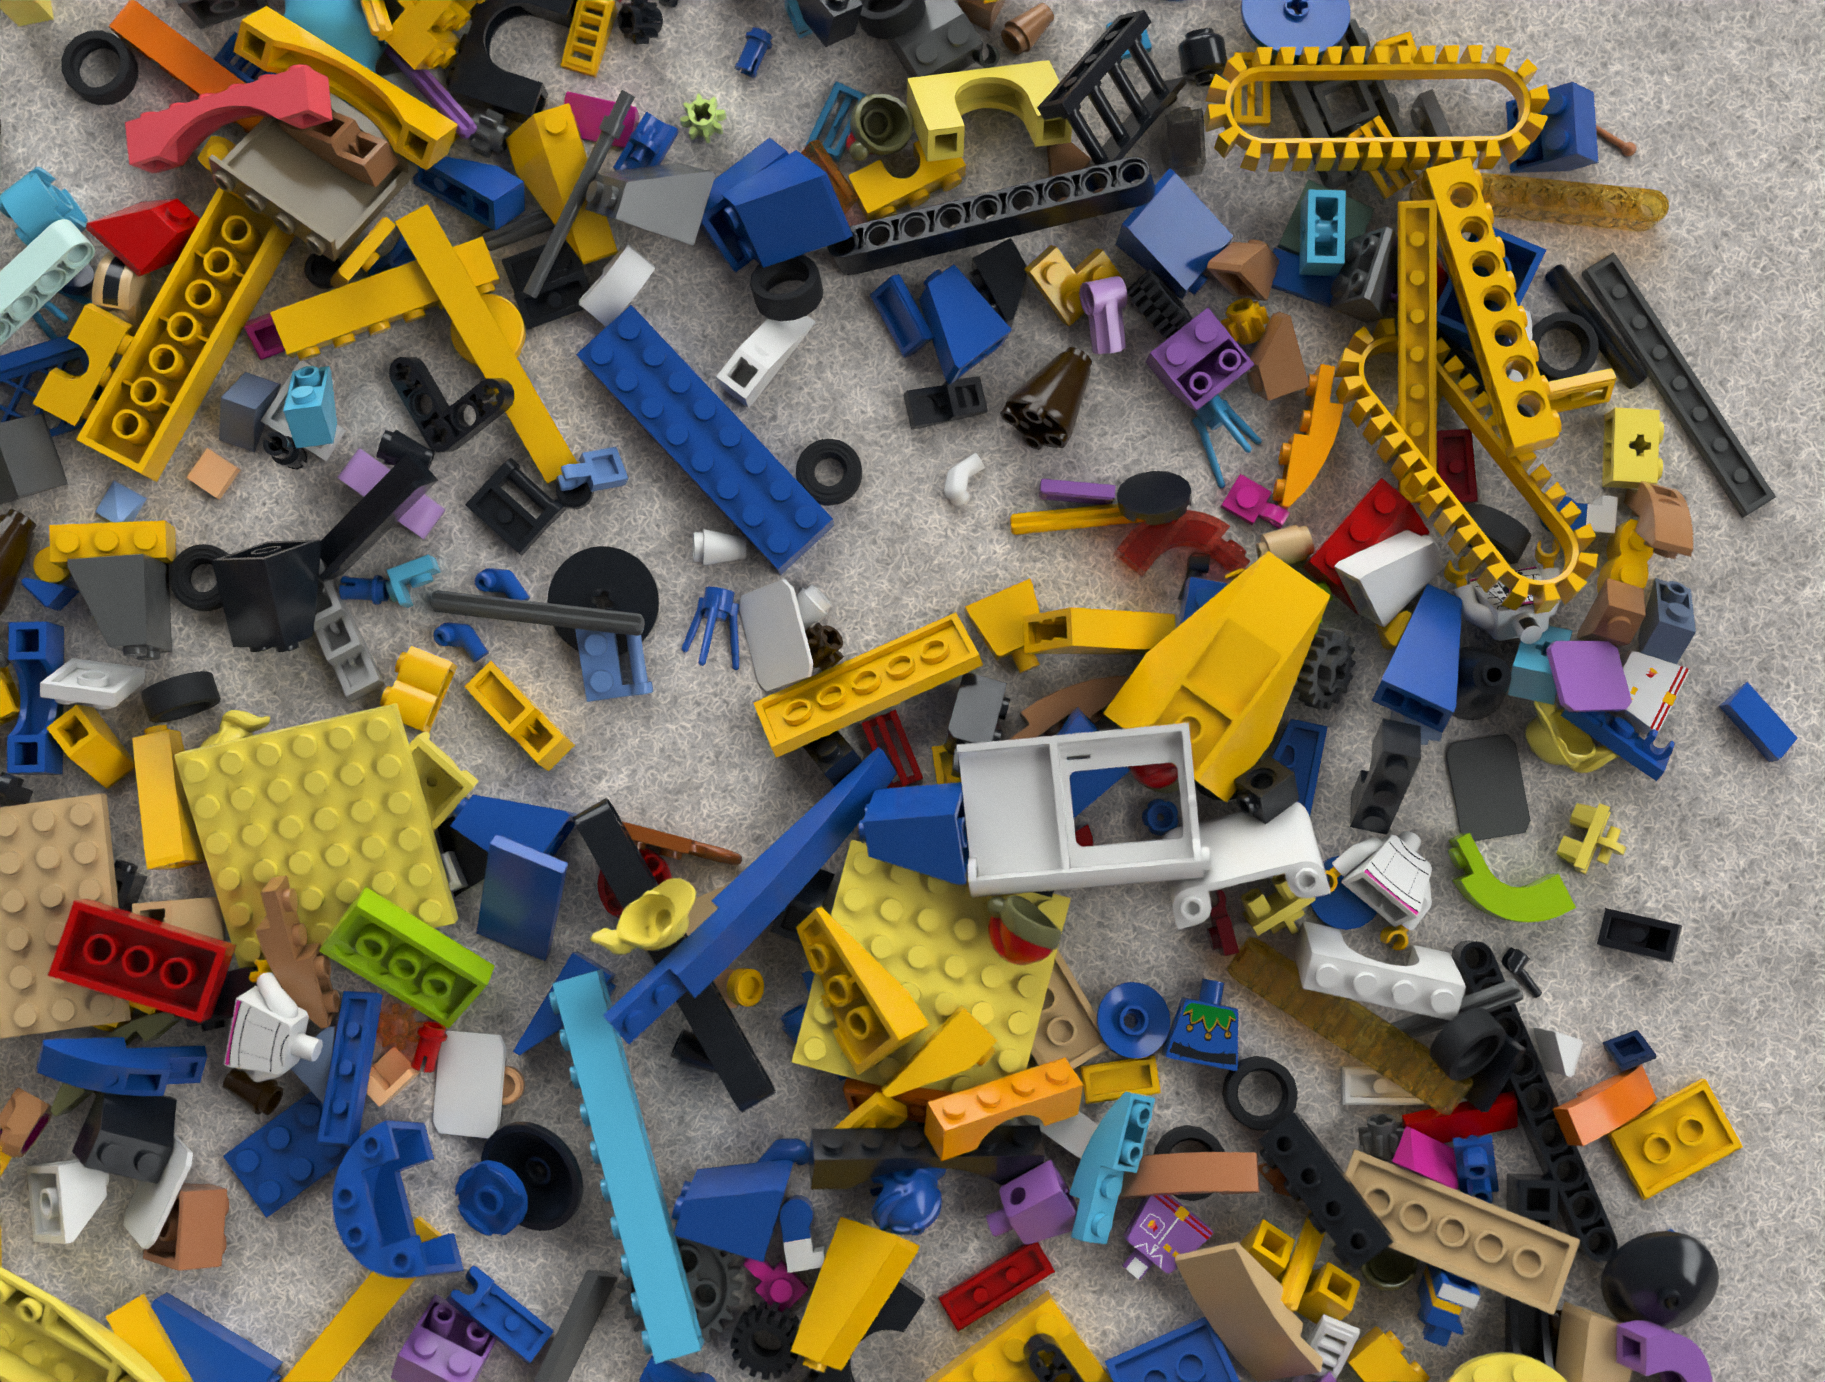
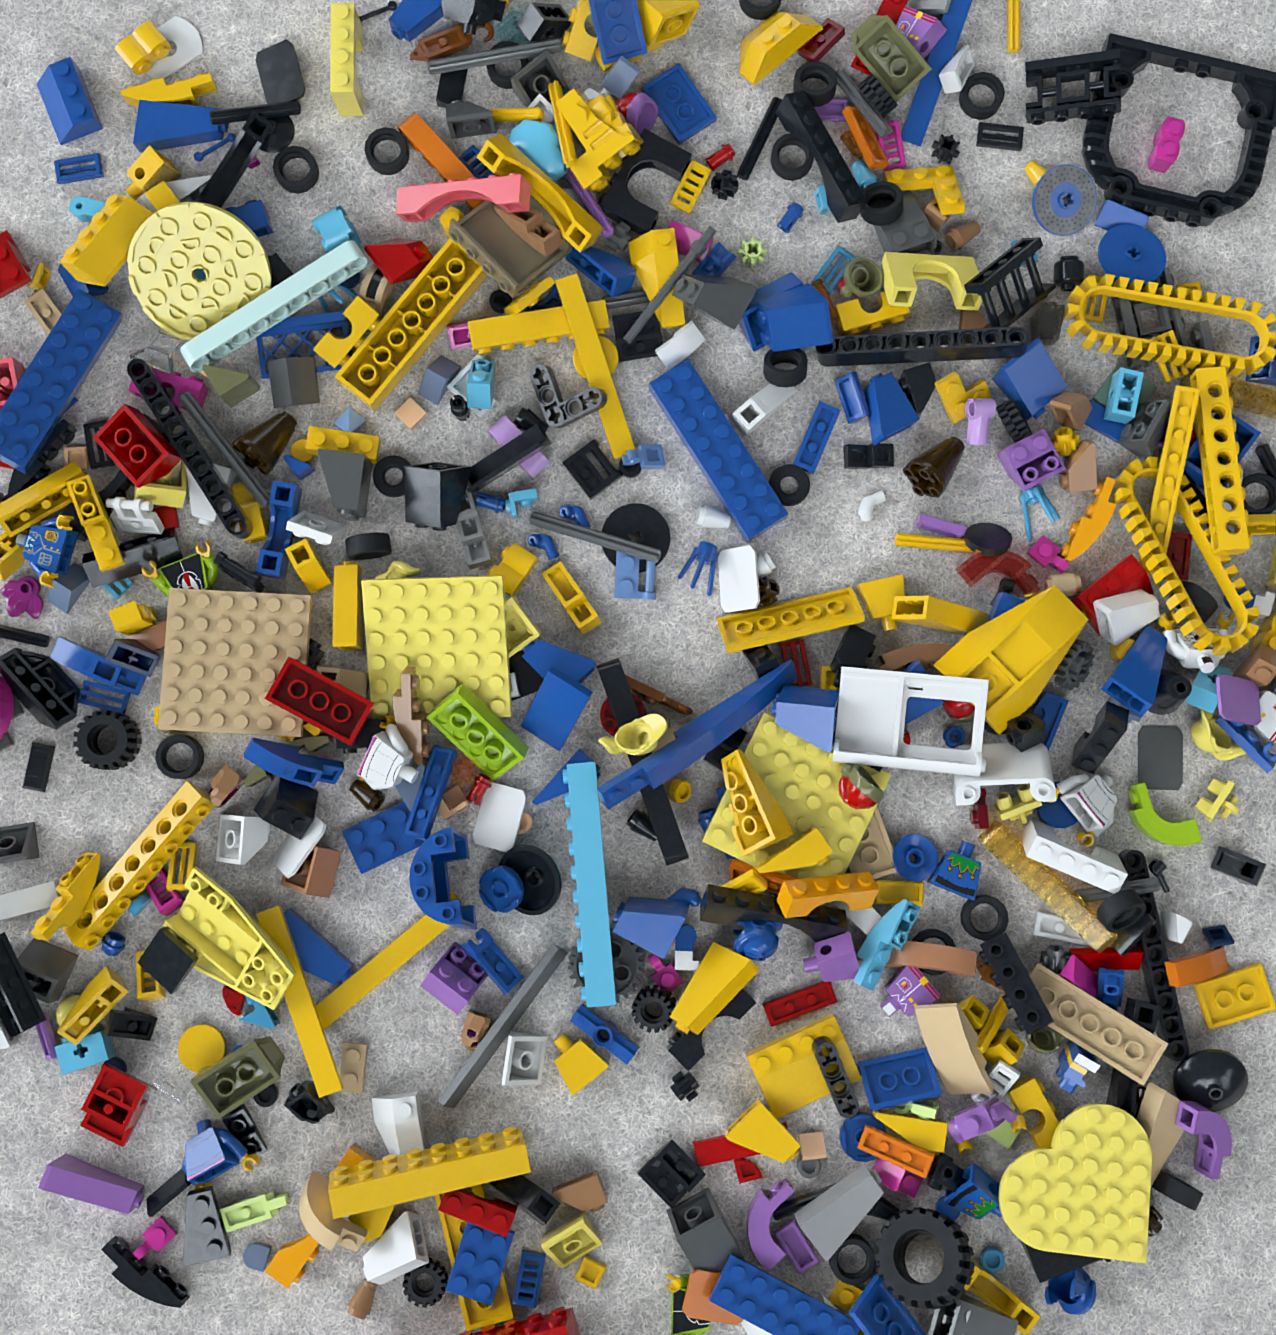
camera: 10 degrees right, 0 degrees up
(857, 389) = (816, 437): none -> blue plate

